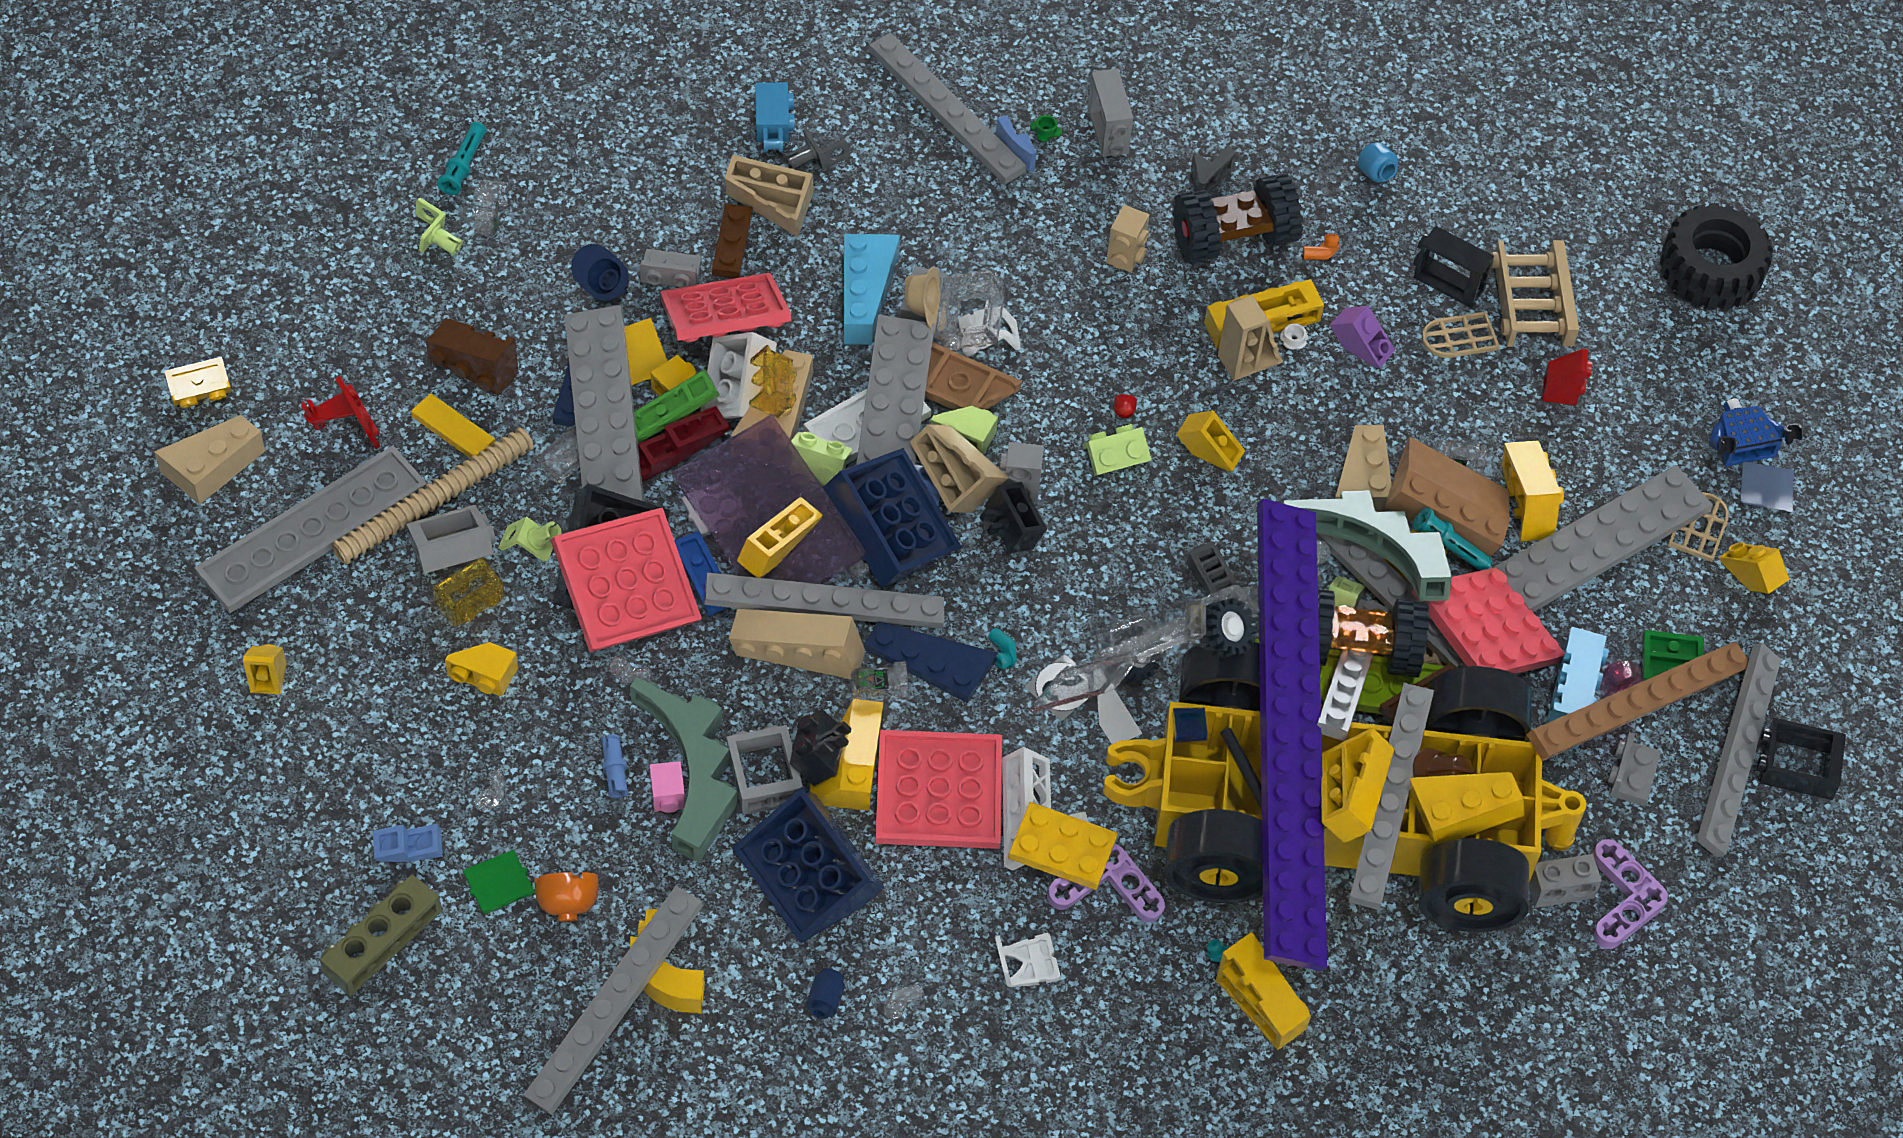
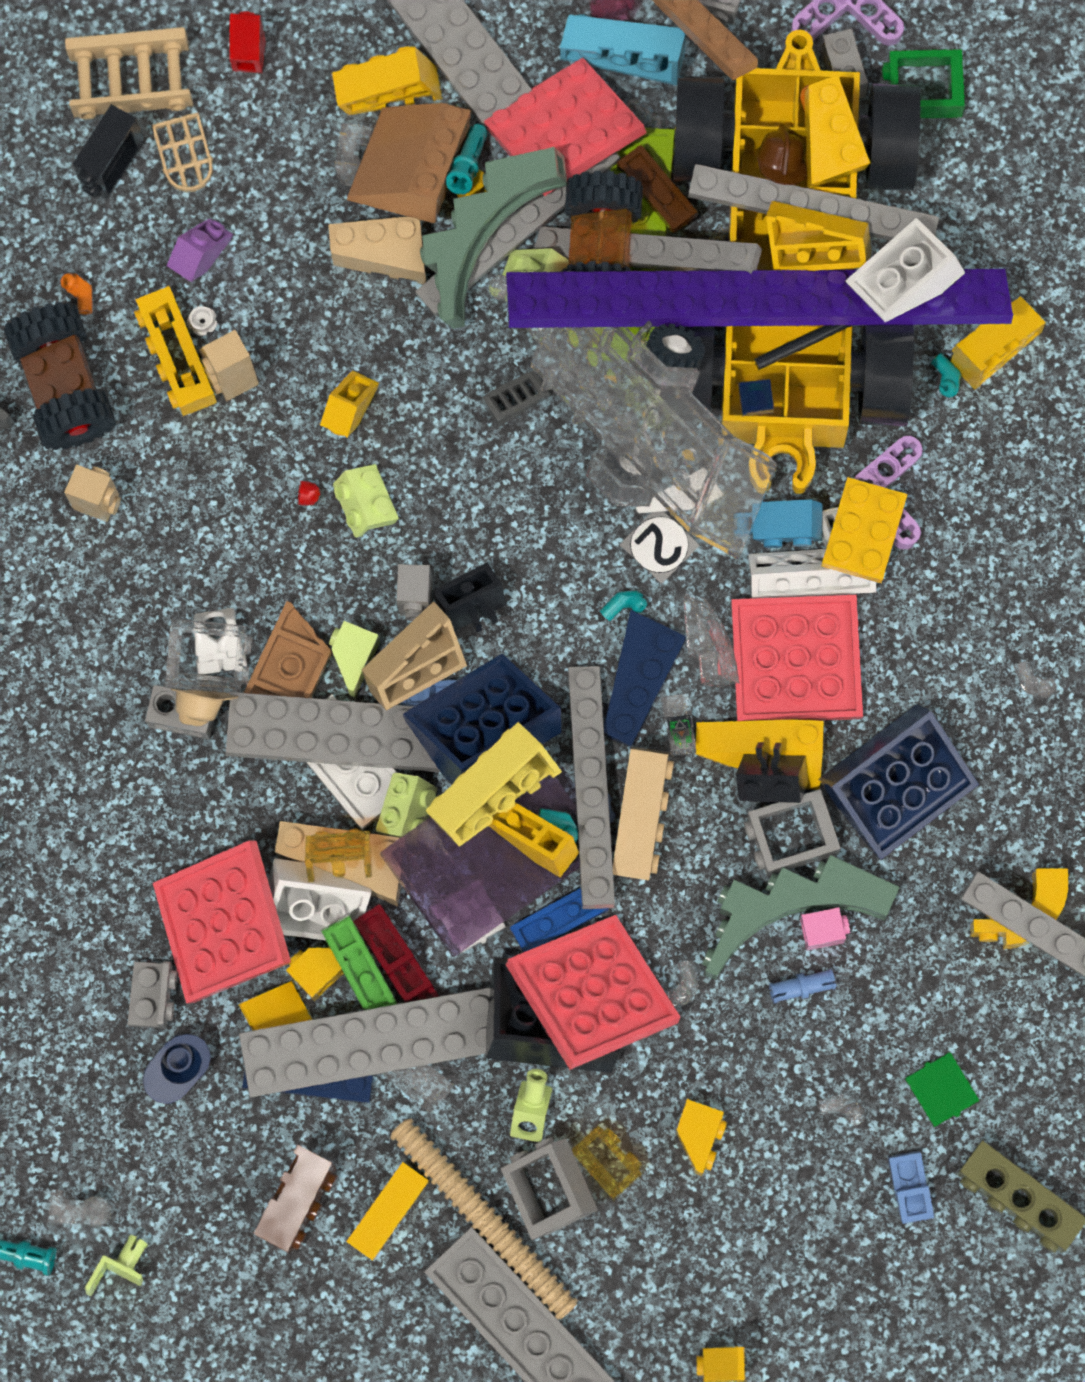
camera: 85 degrees left, 20 degrees up
(341, 406) = (381, 1330): red plate -> none
(566, 894) = (959, 1014): orange cylinder -> none
(732, 241) = (106, 930): reddish brown plate -> none
(771, 190) = (44, 887): tan wedge -> none
(790, 570) = (561, 820): none -> teal arm
(825, 993) = (1038, 752): dark blue brick -> none
(826, 500) = (492, 784): none -> light yellow wedge
(867, 276) = (162, 775): medium azure wedge -> none
(960, 710) = (709, 643): none -> clear slope
(1036, 958) = (977, 555): white piece -> none
(1075, 782) = (788, 522): none -> dark azure brick
(1314, 853) = (906, 272): none -> white slope
(1542, 983) = (952, 59): none -> green window

